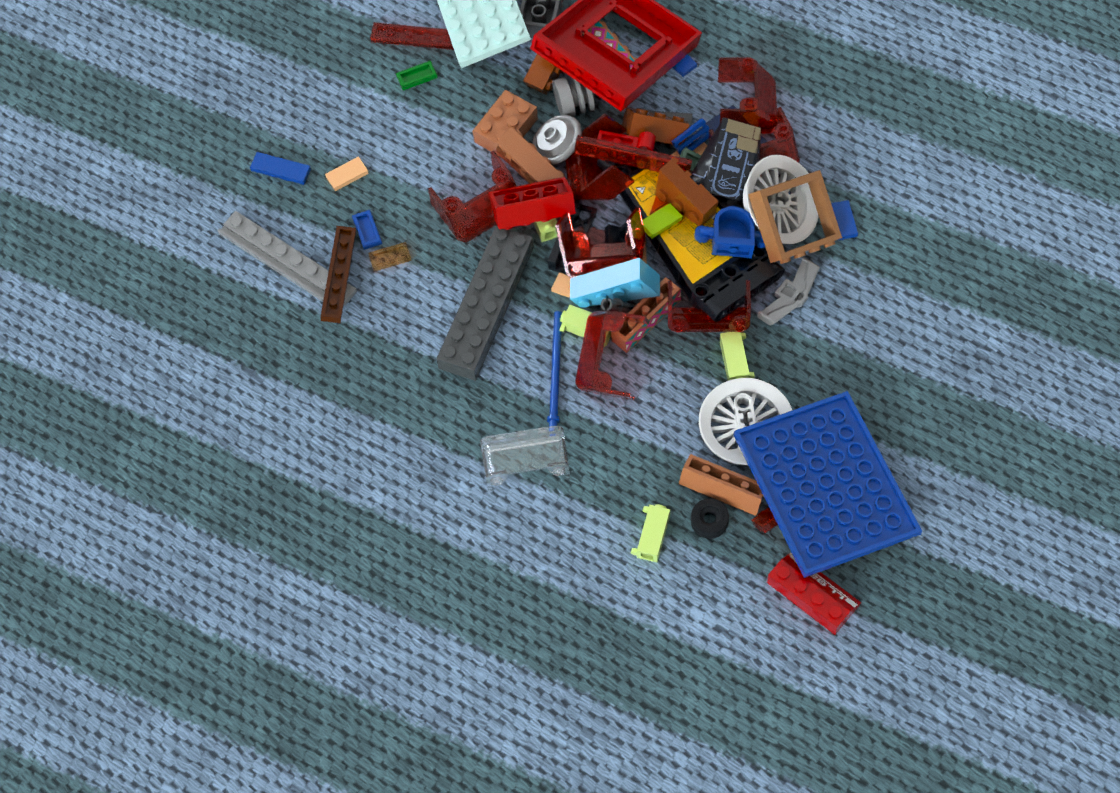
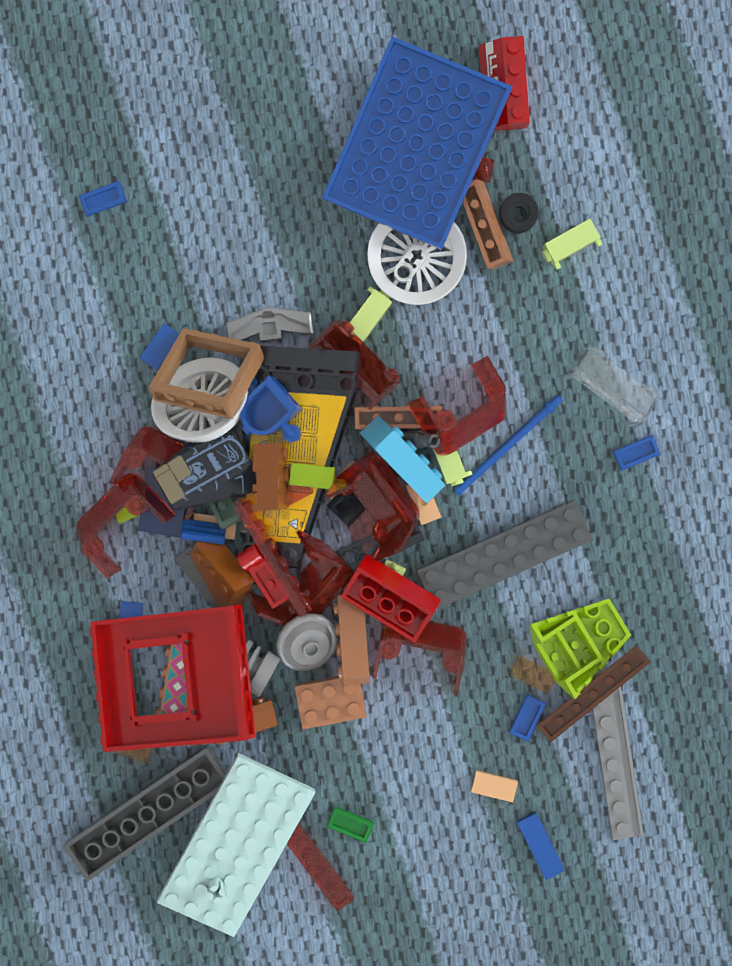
camera: 140 degrees left, 25 degrees up
(378, 298) = (579, 643): none -> lime wedge
(463, 448) = (636, 452): none -> blue tile
(983, 268) = (102, 198): none -> blue tile

